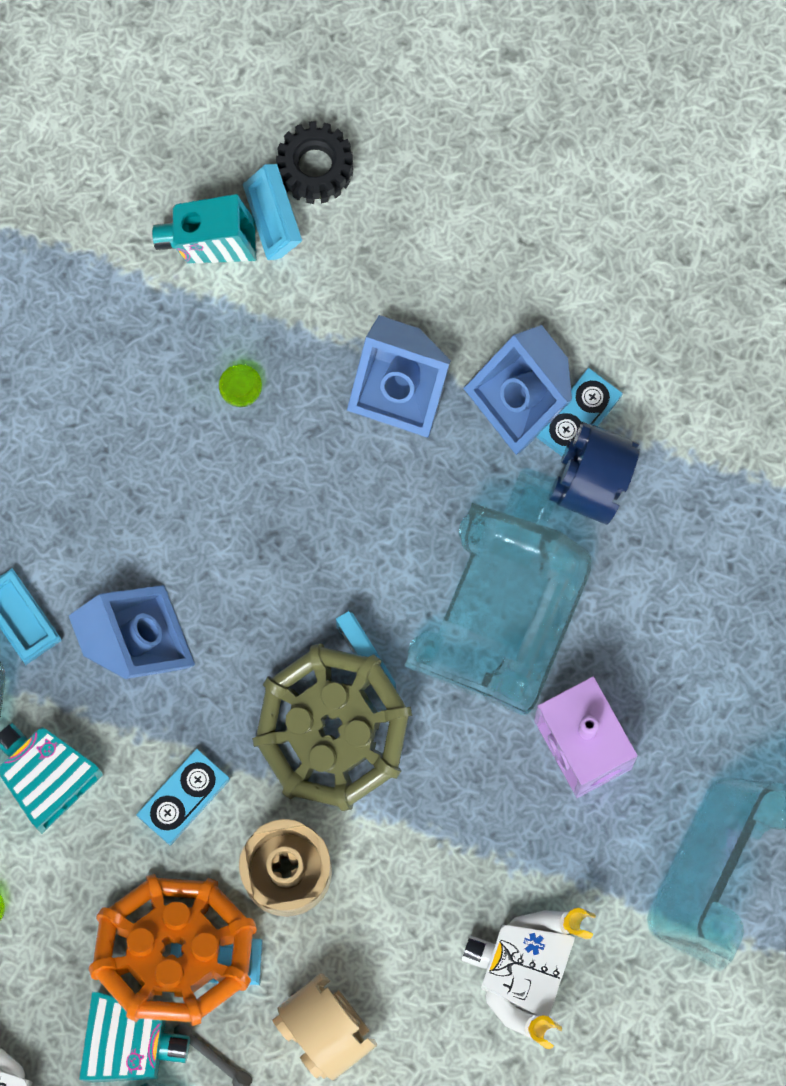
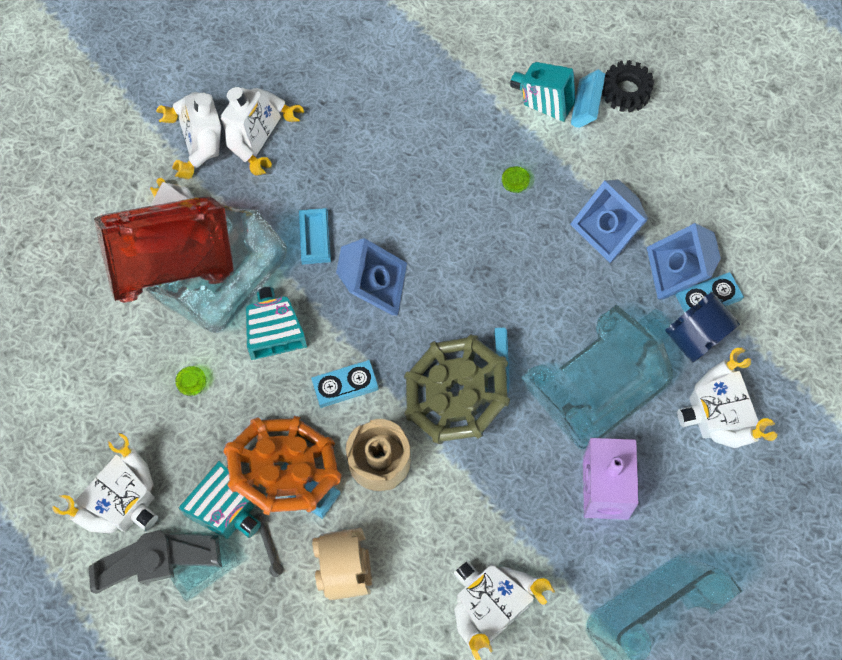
camera: 30 degrees right, 10 degrees down
(673, 560) = (724, 406): none -> white torso

